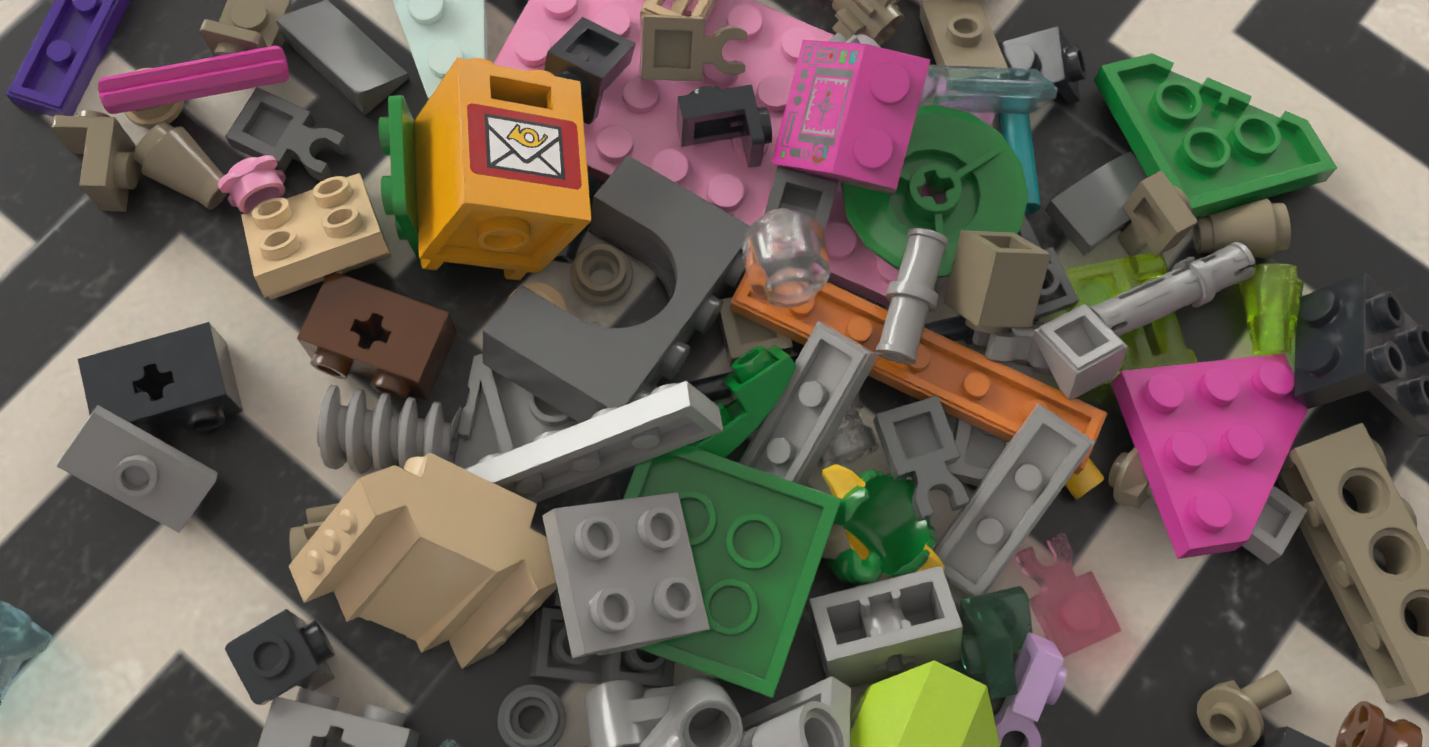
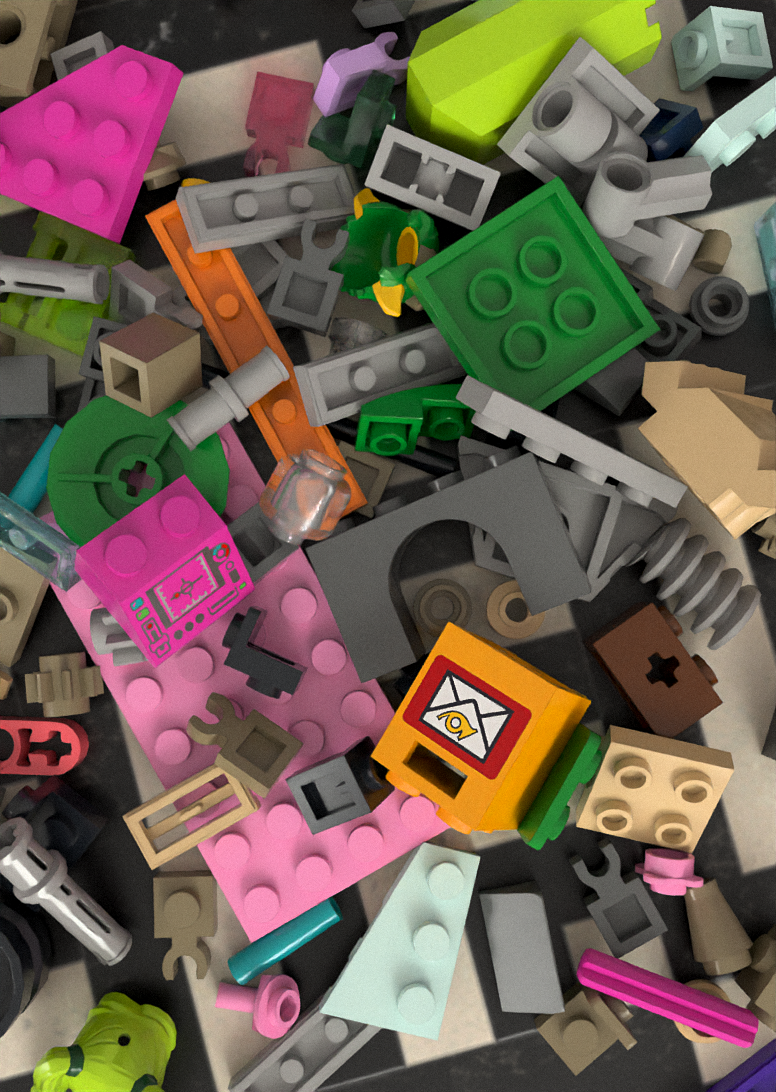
camera: 135 degrees left, 15 degrees up
(624, 574) = (614, 322): light grey plate -> none
(1080, 351) = (129, 271): light grey slope -> none

